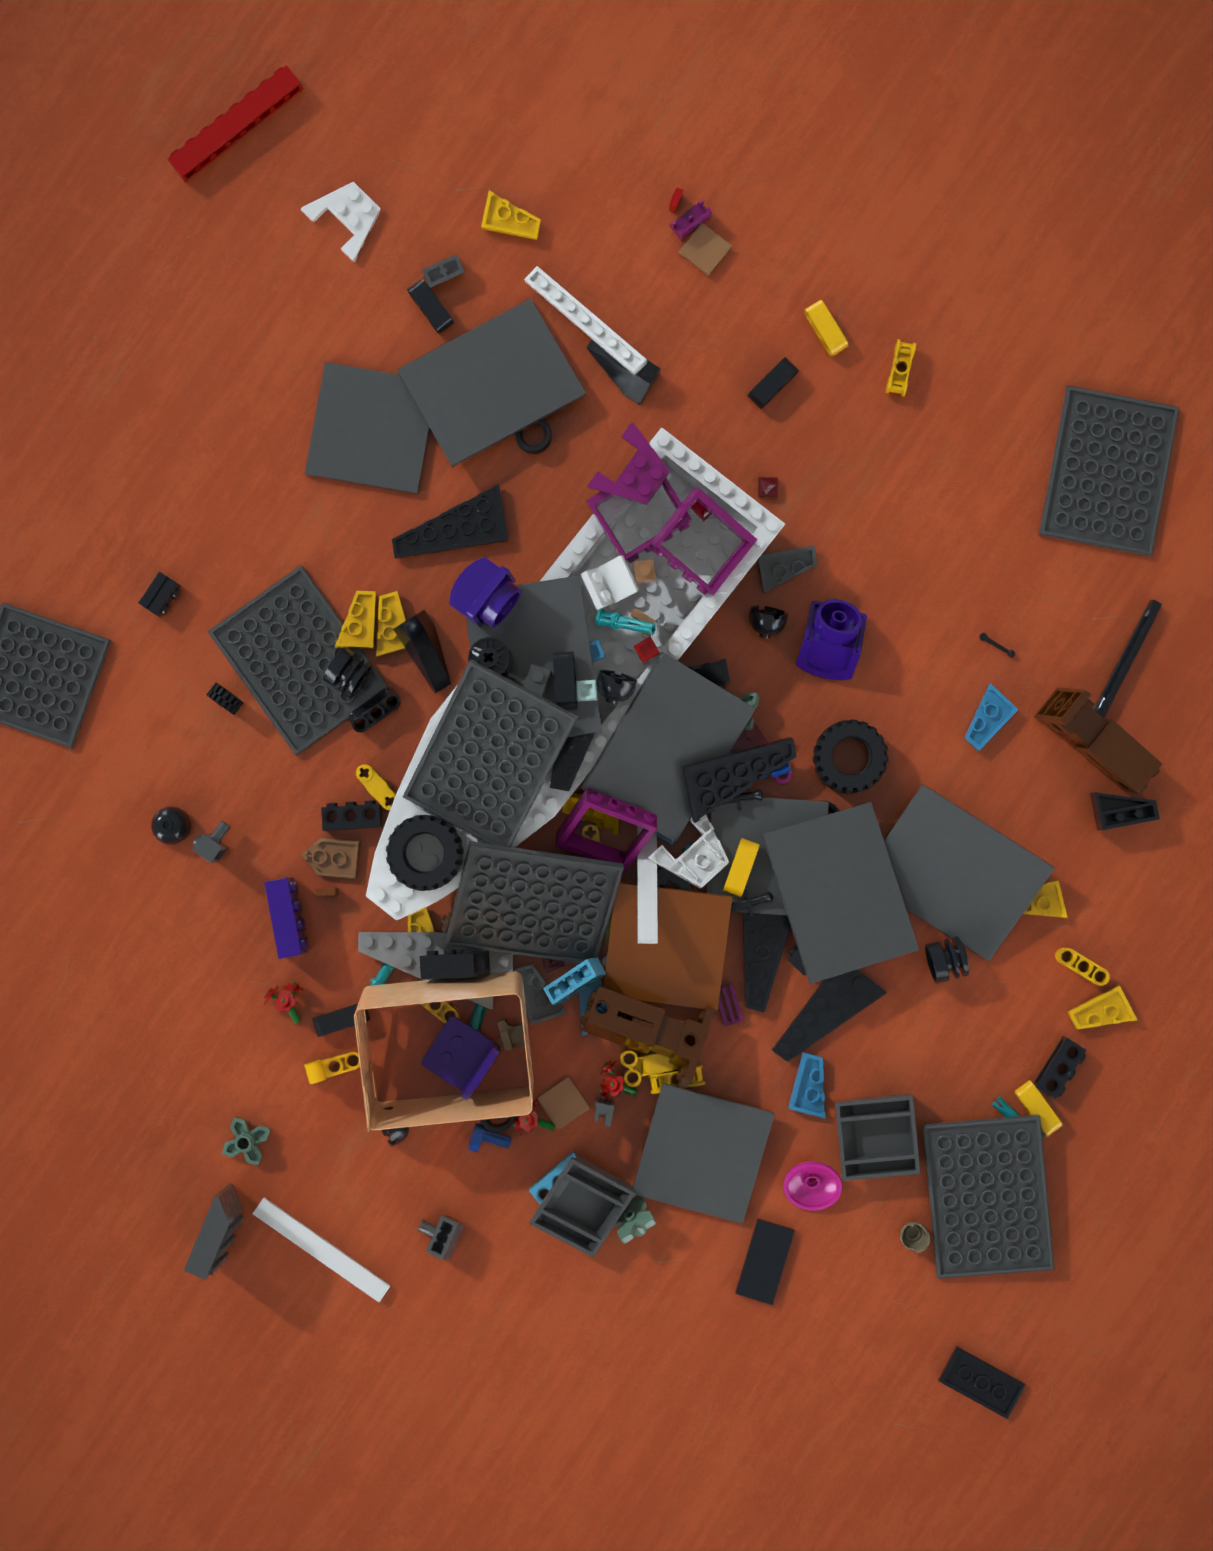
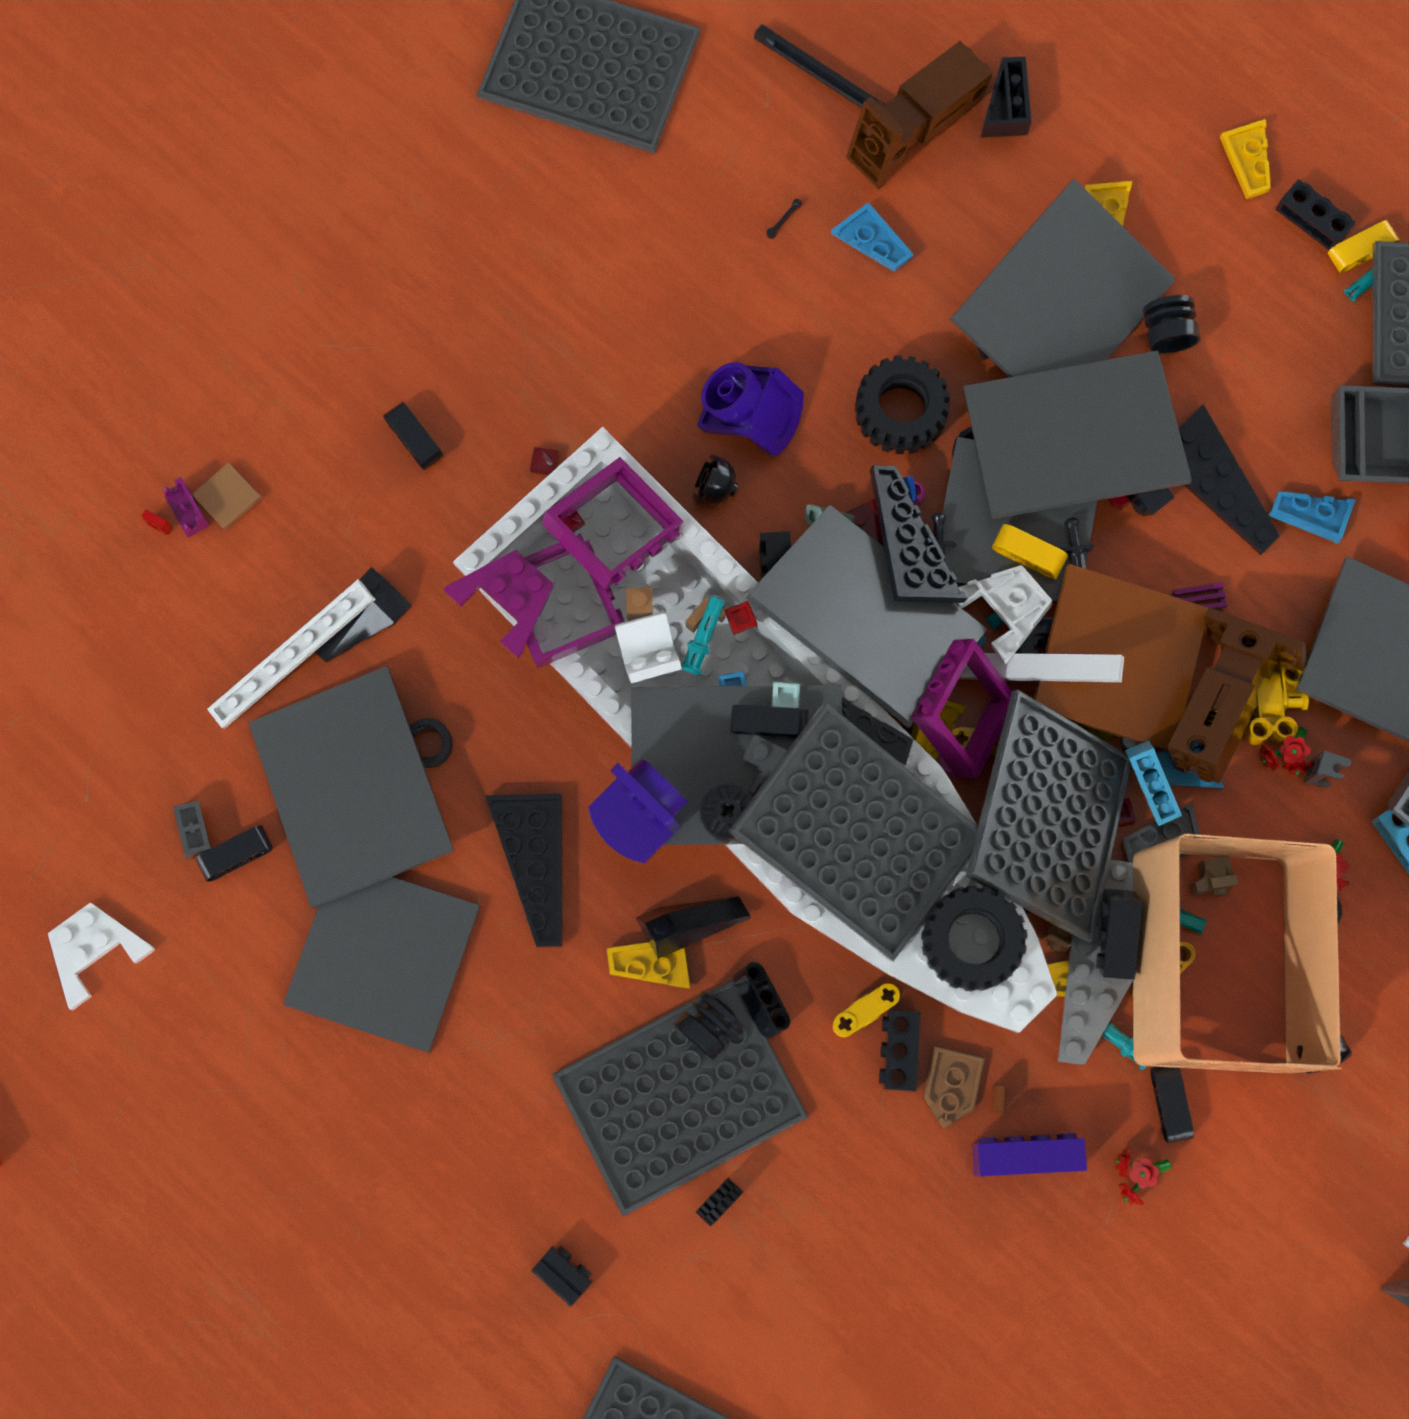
camera: 80 degrees left, 10 degrees down
(171, 825) = (882, 1304): black cylinder -> none
(210, 845) = (918, 1248): dark grey brick -> none
(251, 1151) = (1338, 1253): sand green plant -> none
(319, 1069) = (1240, 1140): yellow piece -> none
(359, 623) = (642, 1004): yellow wing -> none
(461, 1055) = (1242, 941): dark purple piece -> none
(481, 1134) = (1346, 942): blue piece -> none
(508, 219) = (139, 736): yellow wing -> none
(563, 1103) = (1309, 821): medium nougat tile -> none
(615, 686) = (784, 660): black cylinder -> none
(763, 946) = (1137, 547): black wing -> none
(783, 565) = (648, 449): dark grey wing -> none
(826, 328) = (354, 363): yellow beam -> none
(903, 355) = (436, 288): yellow piece -> none
(1091, 967) = (1198, 164): yellow beam -> none

